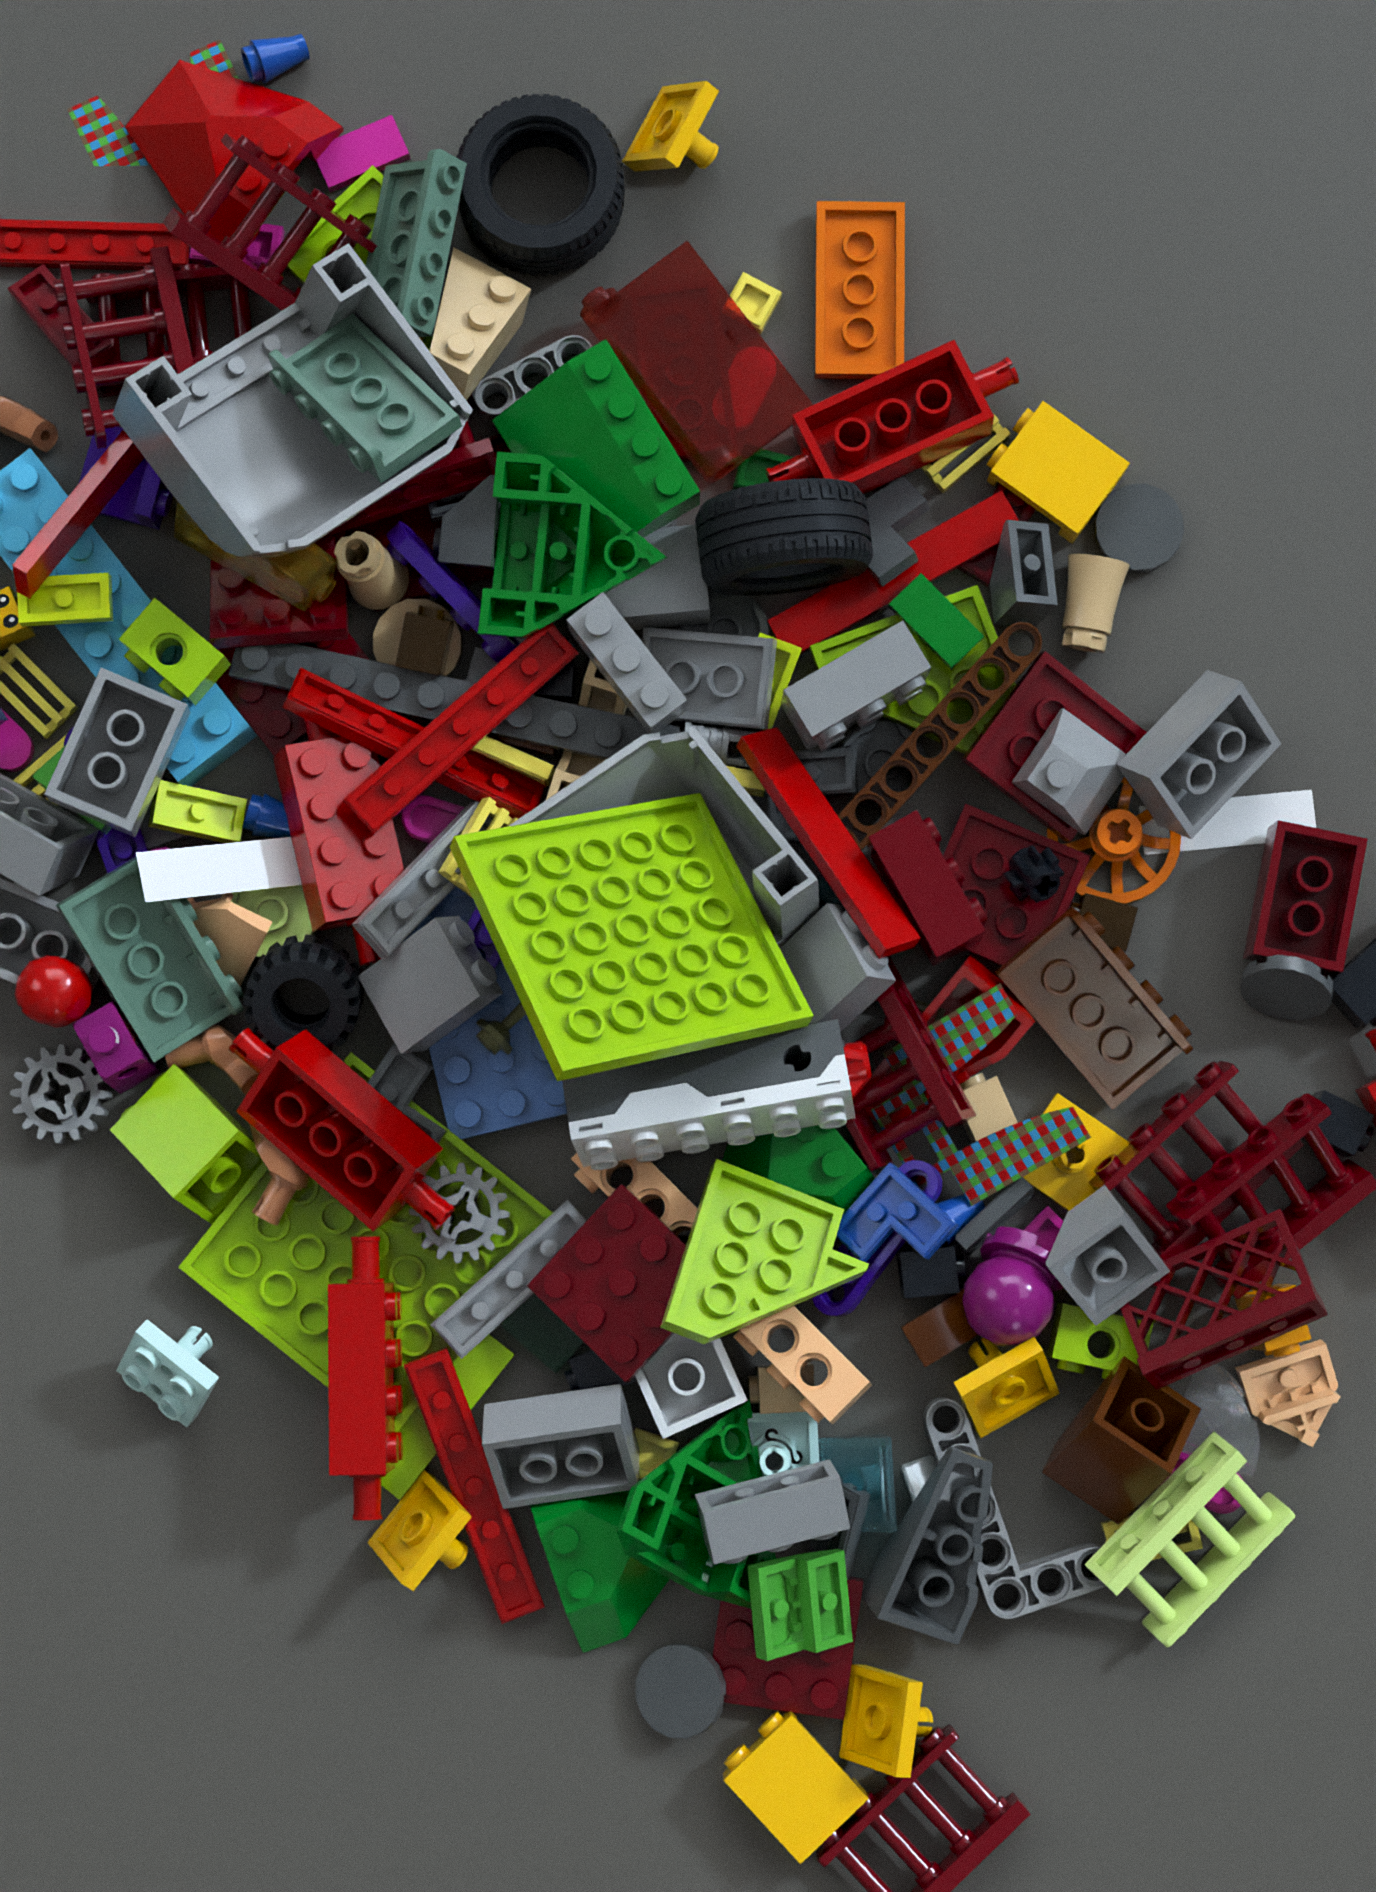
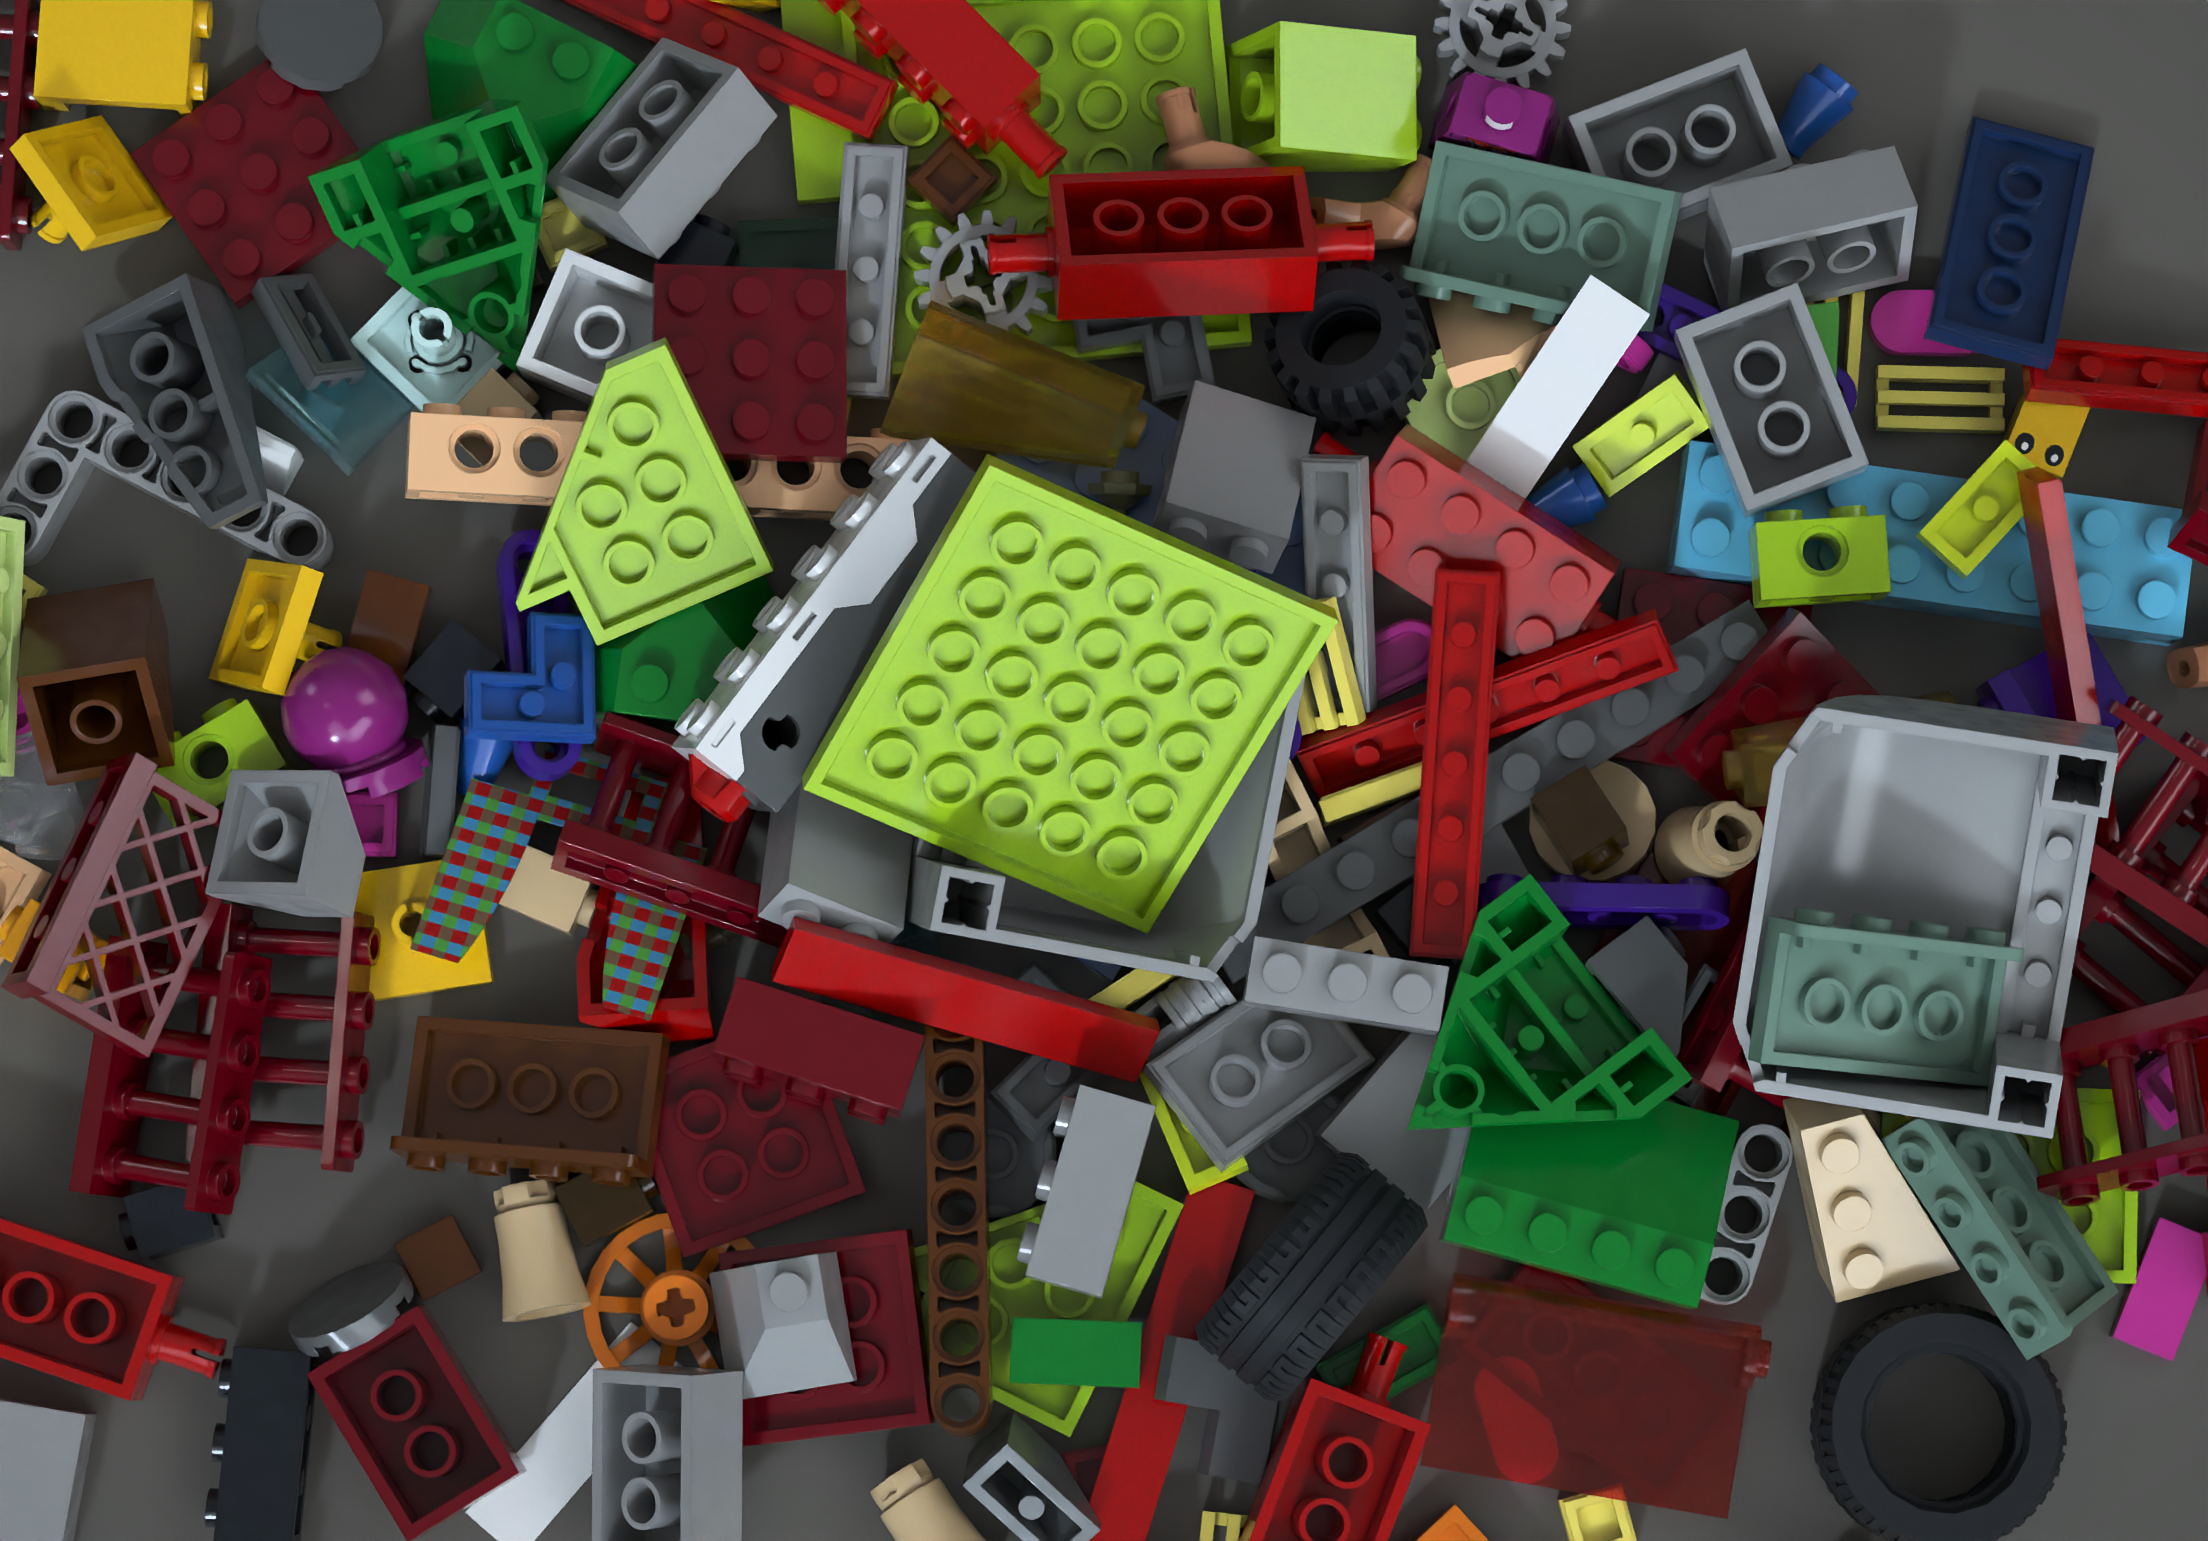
camera: 135 degrees right, 0 degrees up
(53, 991) = (1602, 110): red hair -> none
(424, 1284) = (952, 180): none -> reddish brown tile
(505, 1136) = (1010, 395): none -> clear yellow slope
(772, 1512) = (386, 274): light grey brick -> none
(800, 1603) = (276, 217): bright green slope -> none
(1034, 874) = (722, 1175): black gear -> none
(1165, 928) = (536, 1254): none -> tan plant
(1214, 977) = (438, 1258): none -> reddish brown tile

